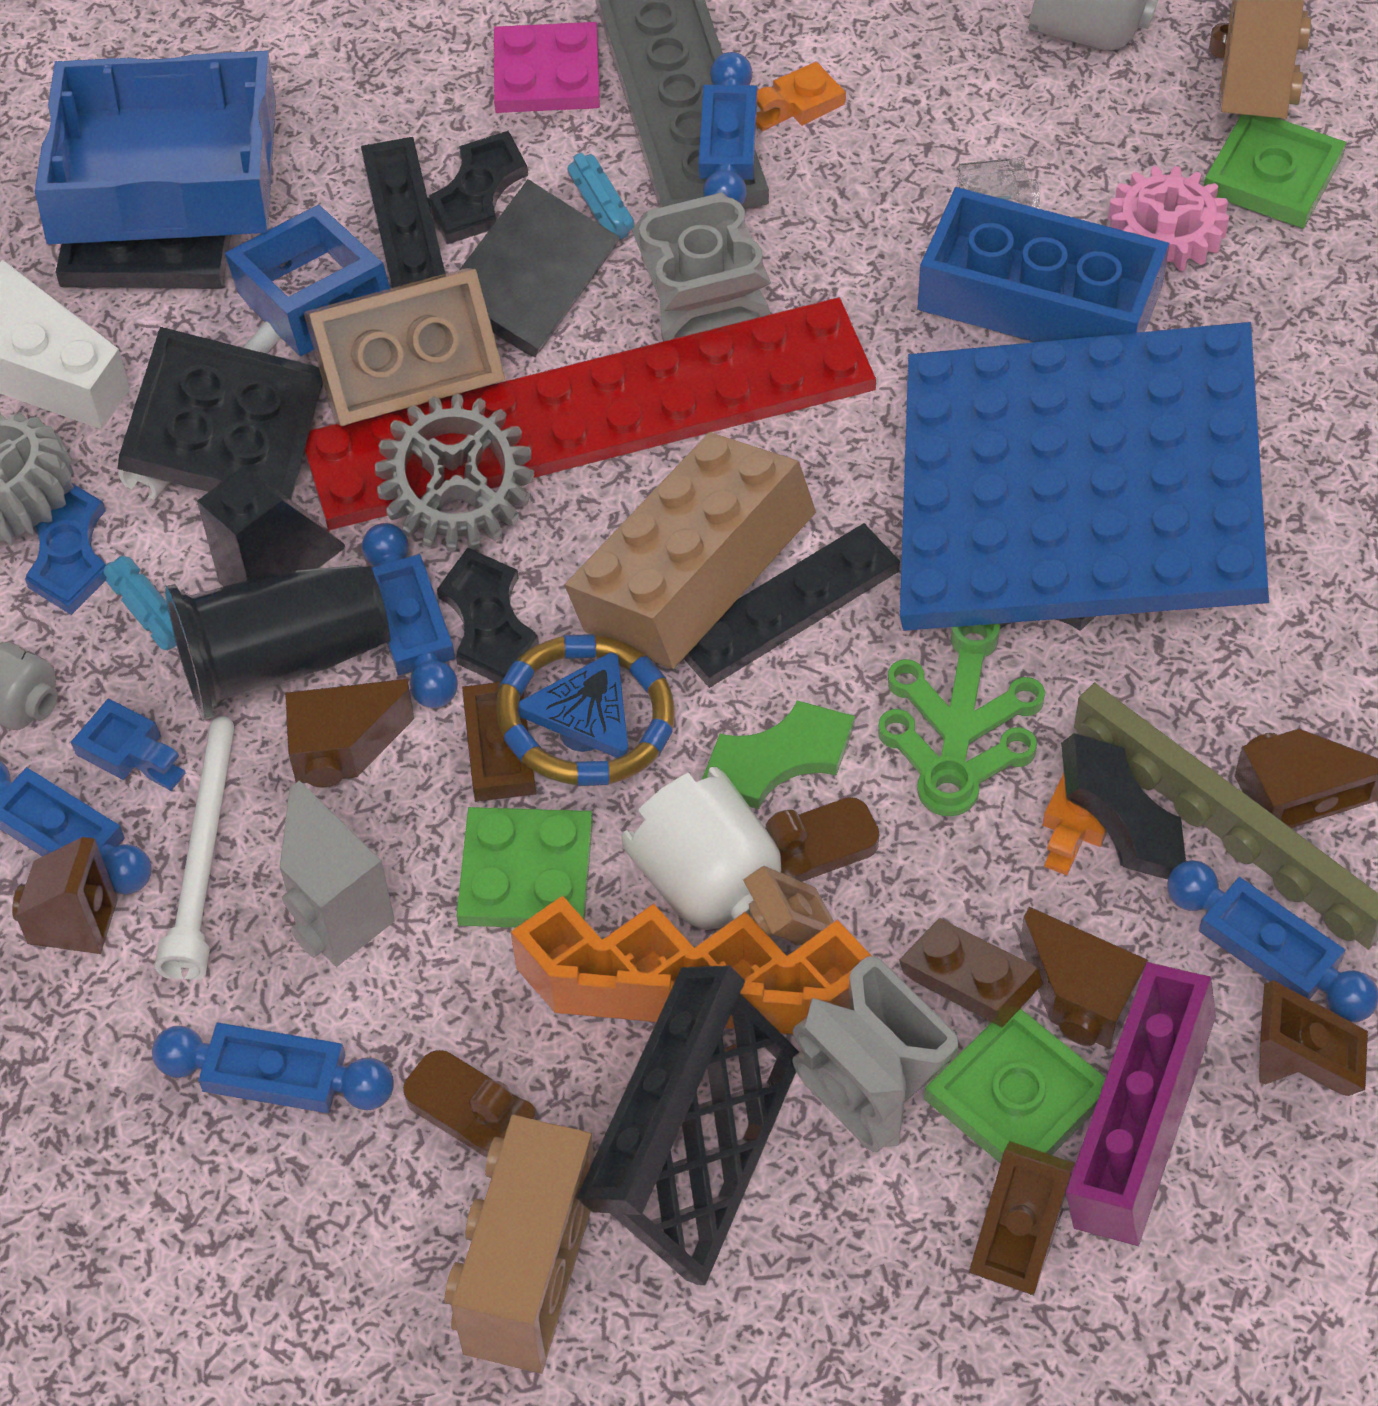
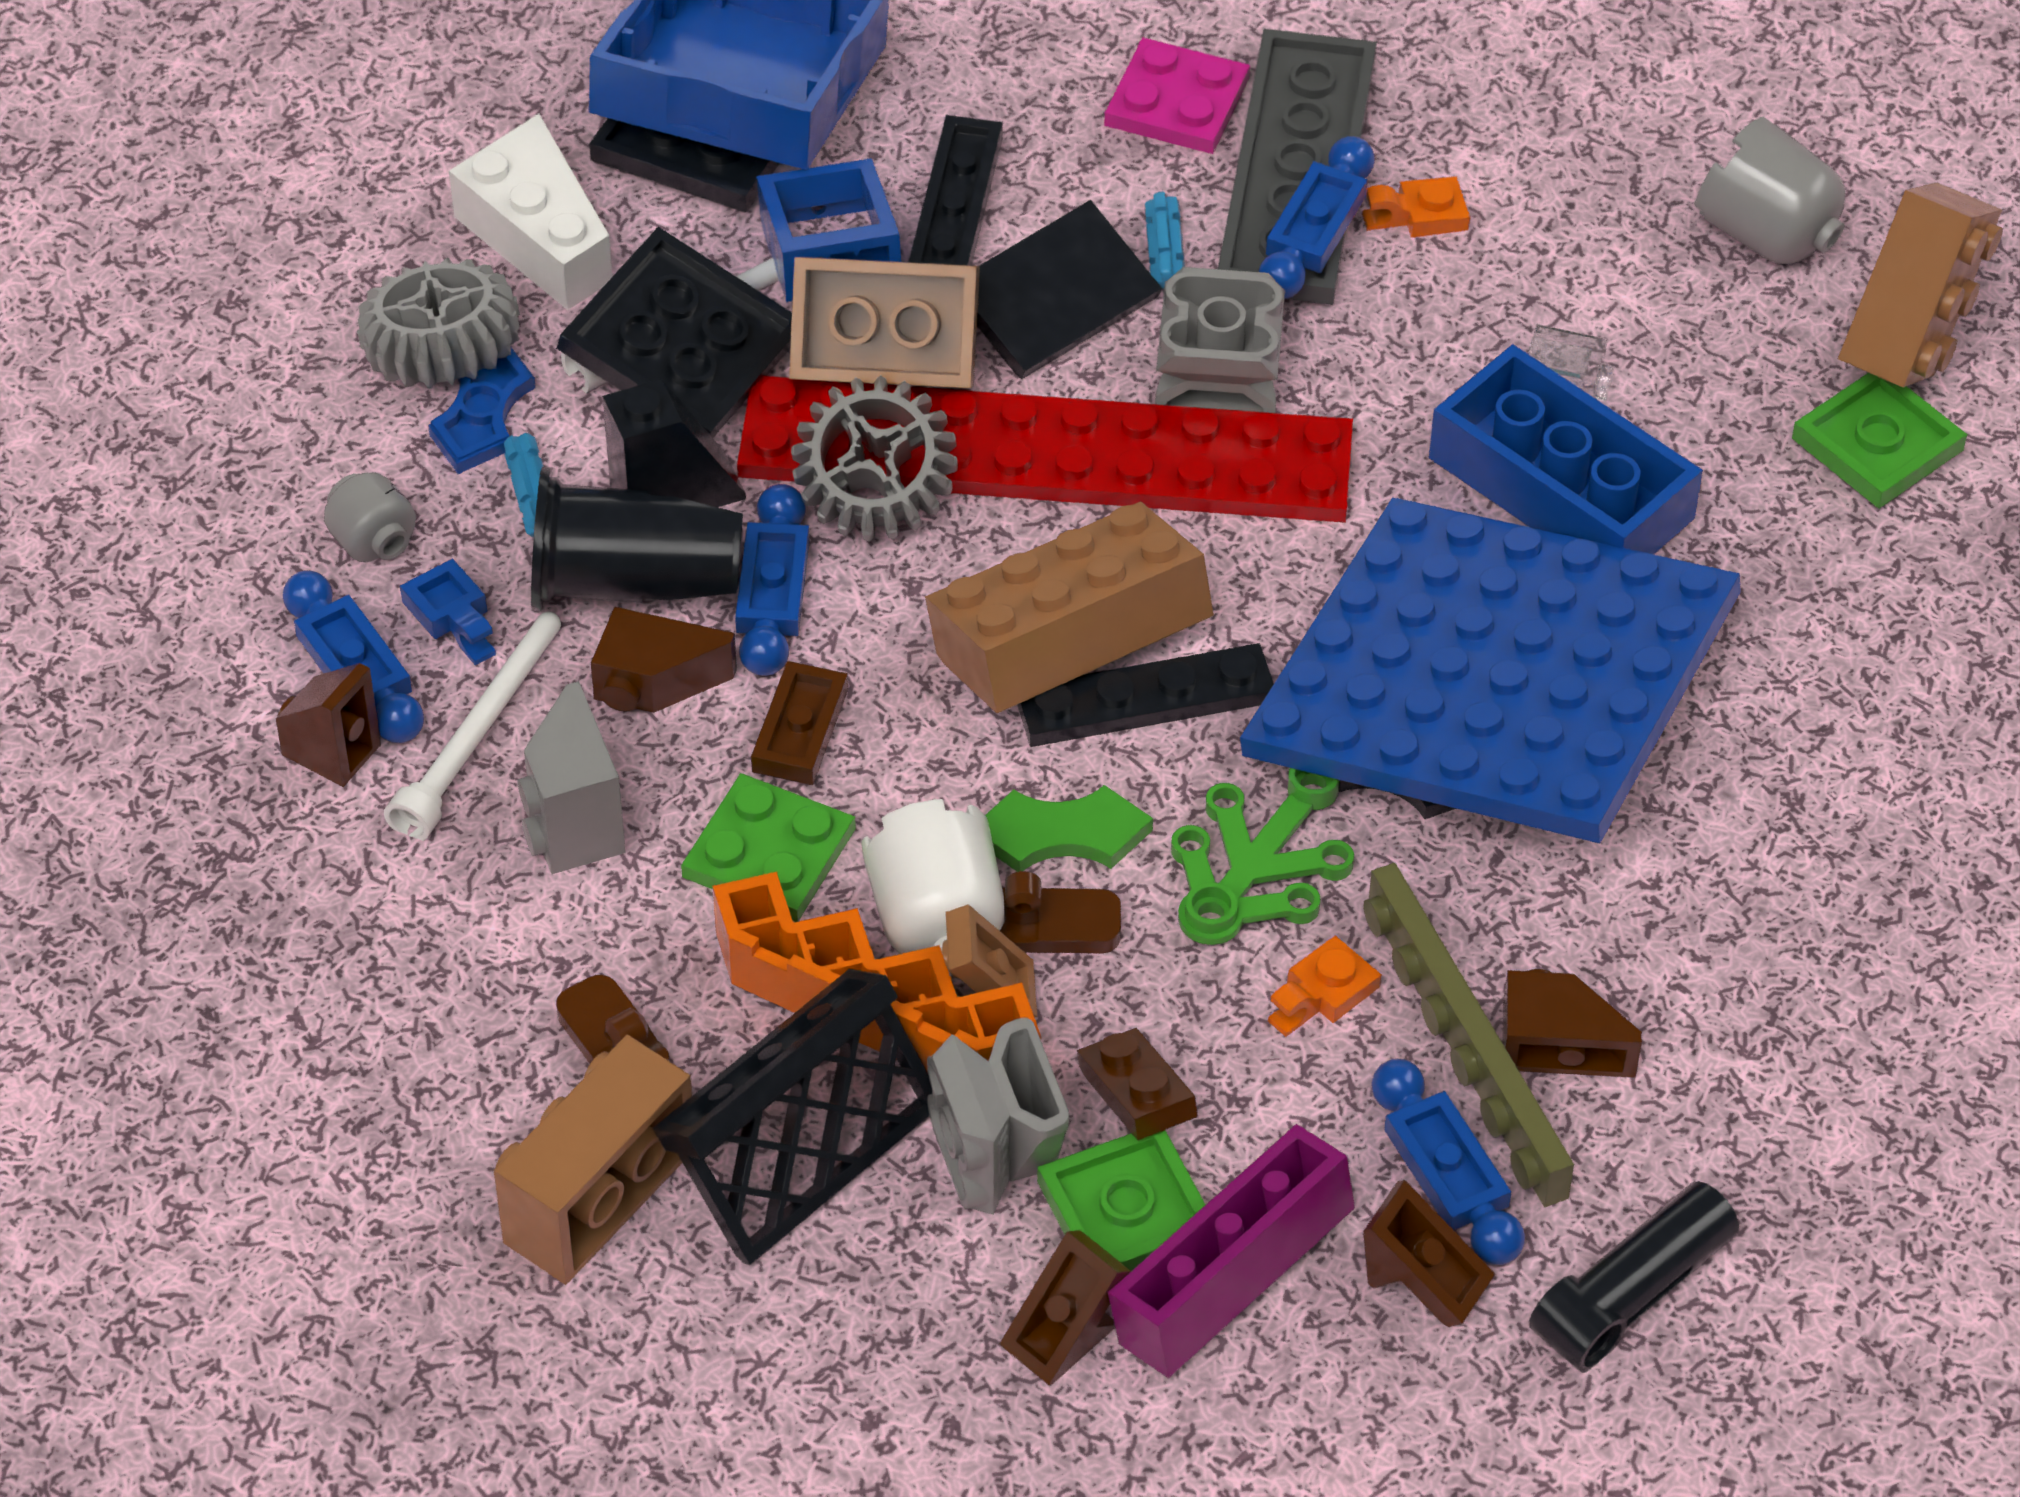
camera: 20 degrees right, 5 degrees down
(272, 1067) = (449, 937): blue plate -> none
(469, 200) = (1060, 182): black tile -> none
(481, 596) = (845, 628): black tile -> none
(584, 710) = (891, 719): piece -> none
(1083, 978) = (1235, 1119): reddish brown slope -> none
(1104, 785) = (1355, 961): black tile -> none
(1172, 211) = (1738, 449): bright pink gear -> none

